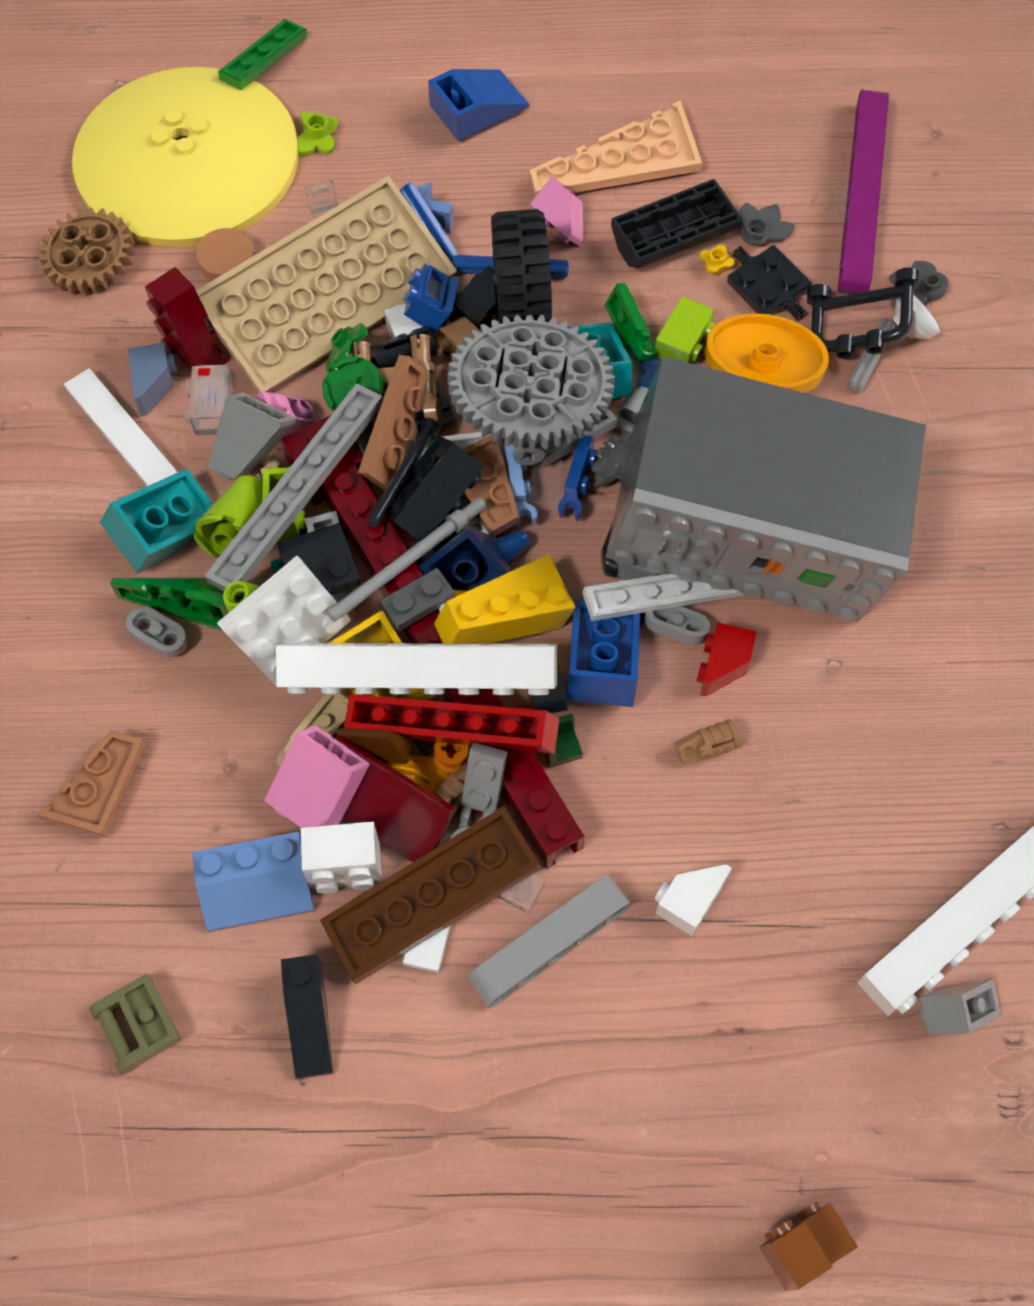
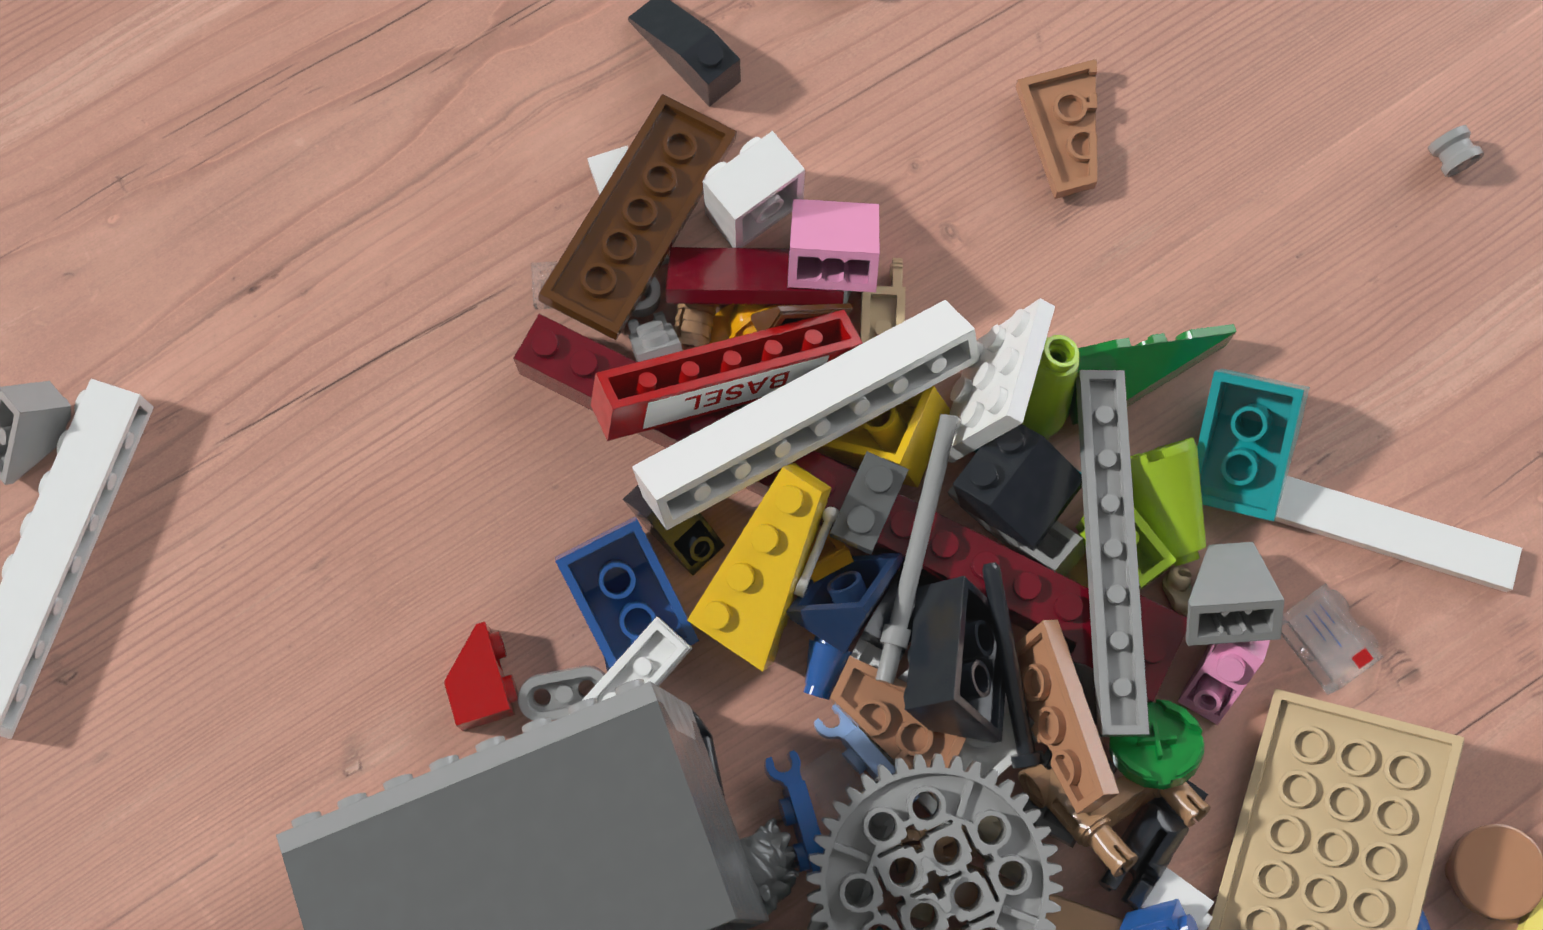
camera: 145 degrees right, 10 degrees up
(151, 374) = (1429, 624): sand blue slope -> none
(159, 633) = (1141, 314): light grey plate -> none
(181, 320) = (1449, 698): dark red wedge -> none
(252, 882) = (839, 126): medium blue slope -> none
(342, 342) = (1224, 819): green plate -> none
(548, 941) = (491, 251): light grey beam -> none
(567, 744) = (611, 465): dark green panel -> none
(690, 896) = (368, 380): white slope -> none
(708, 742) = (445, 566): medium nougat hinge -> none
(807, 1248) = (86, 117): dark orange brick -> none

